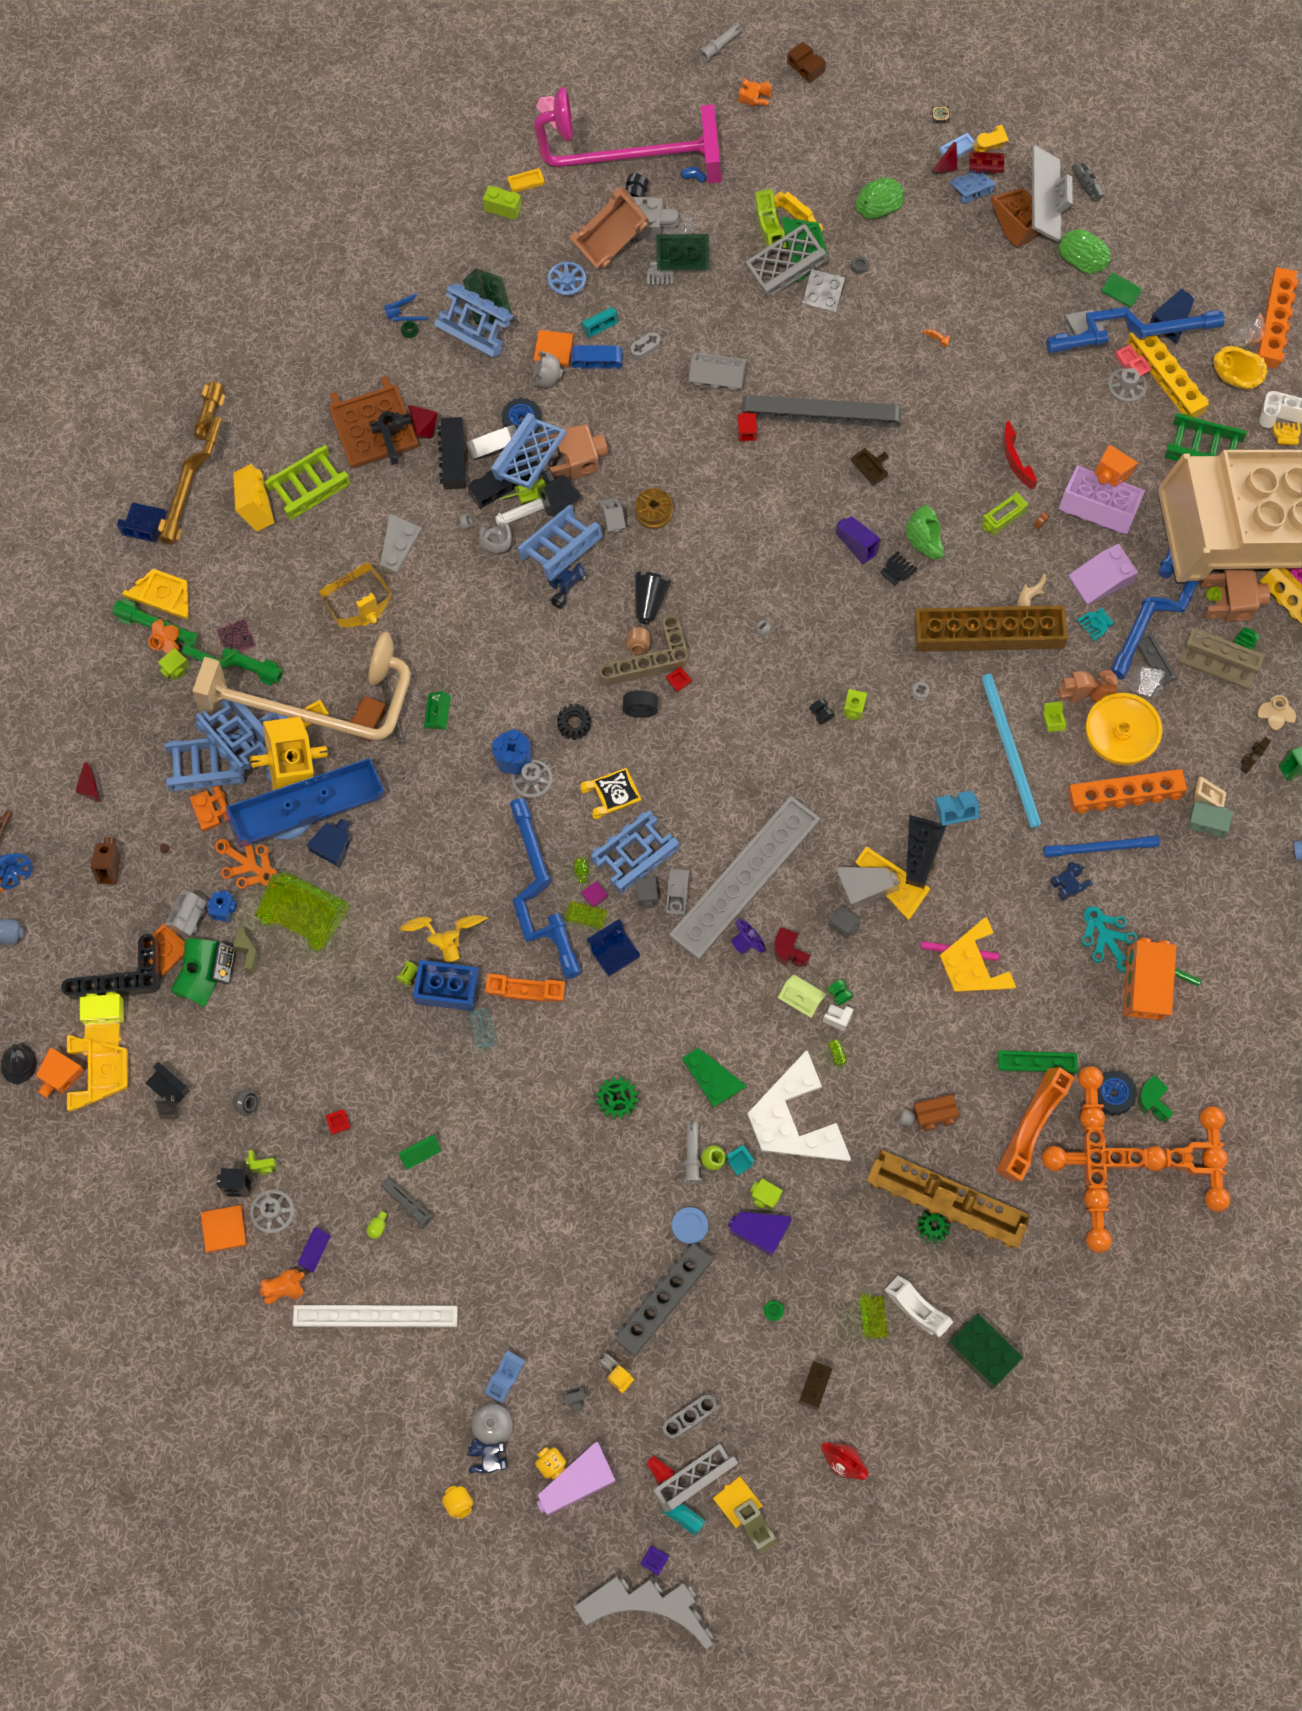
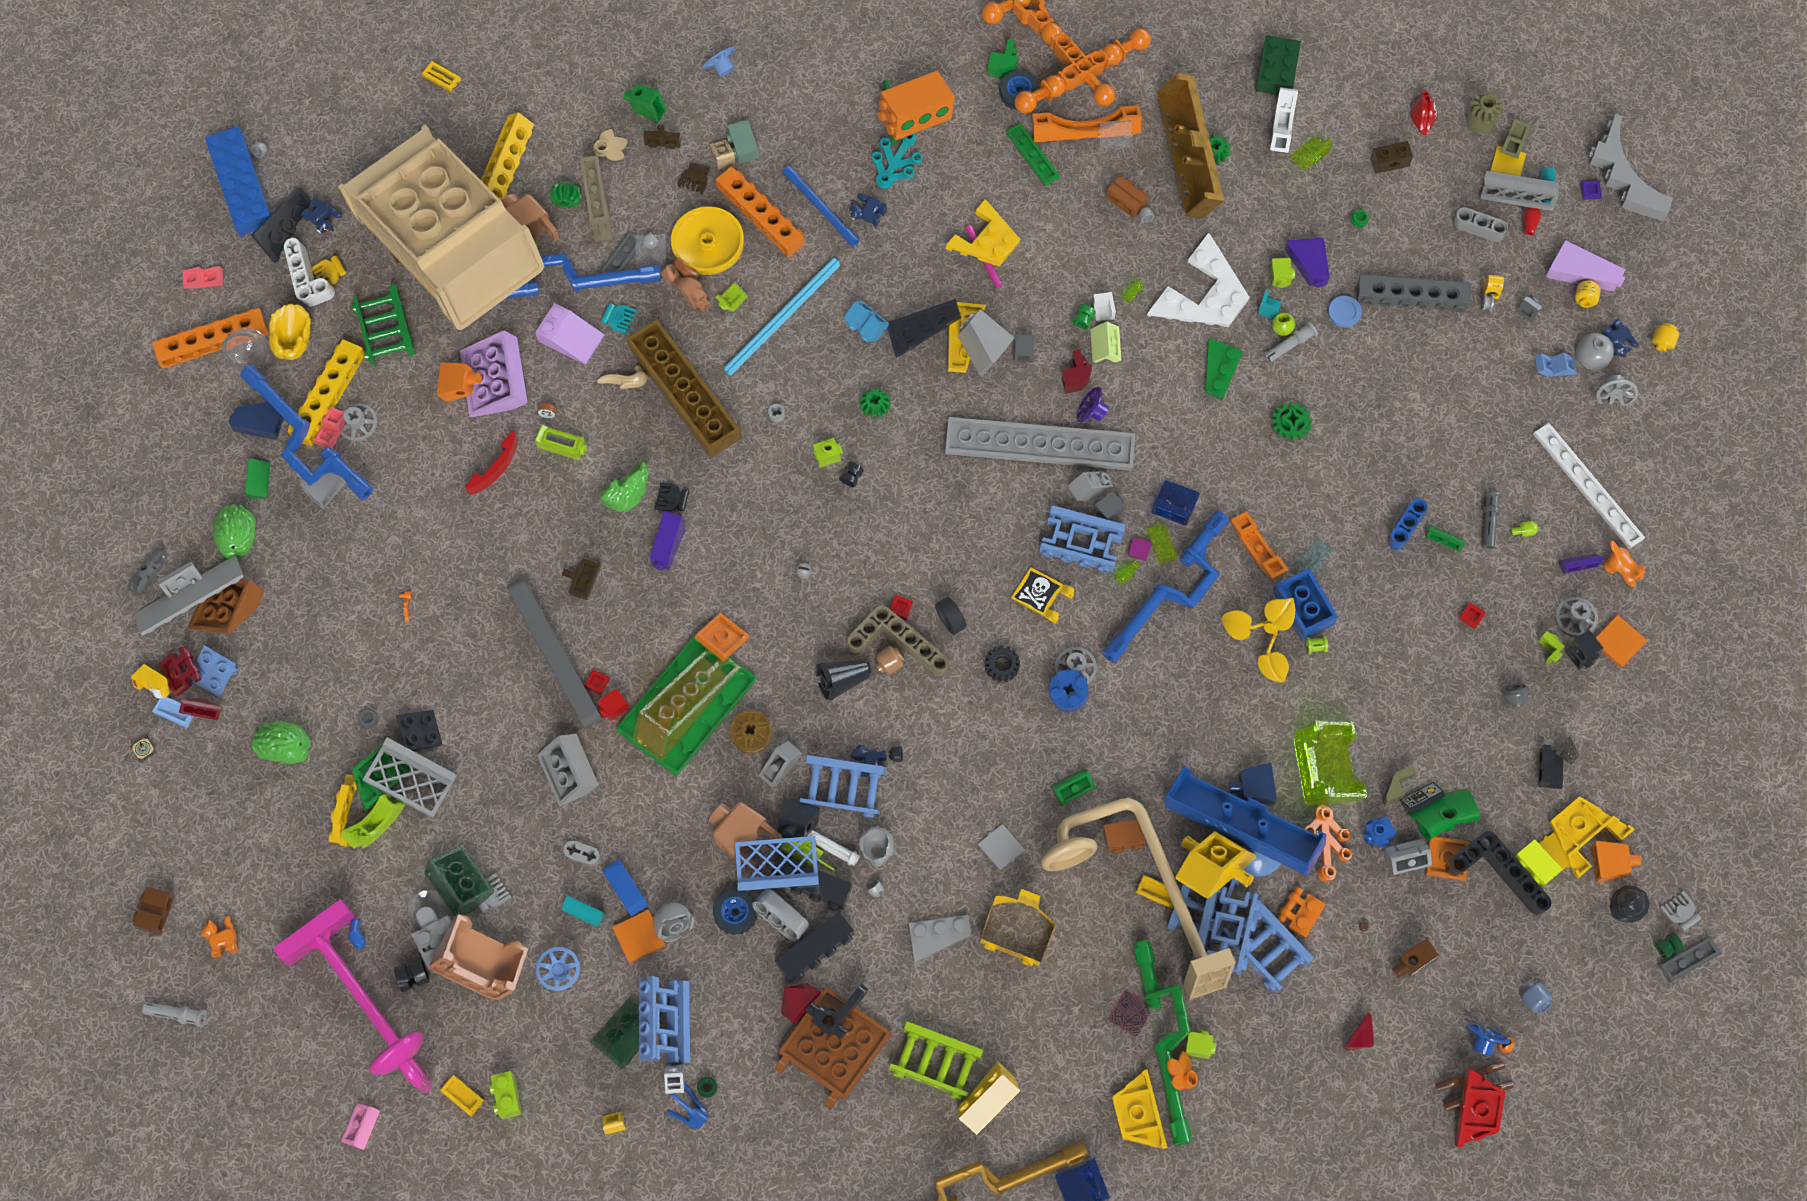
camera: 125 degrees left, 0 degrees up
(428, 305) = (674, 1079): none -> light grey leg
(430, 629) = (1001, 847): none -> light grey piece
(432, 259) = (613, 1123): none -> yellow slope
(442, 1413) = (1616, 389): none -> light grey wheel
(454, 1117) = (1413, 518): none -> blue beam
(711, 478) = (685, 706): none -> piece
(748, 533) = (721, 636): none -> orange tile
(776, 430) = (597, 682): none -> red tile
(799, 1523) = (1484, 112): none -> olive gear
(882, 769) = (875, 409): none -> green gear
(1006, 1143) = (1115, 135): none -> clear piece
(1199, 764) = (696, 175): none -> dark brown piece

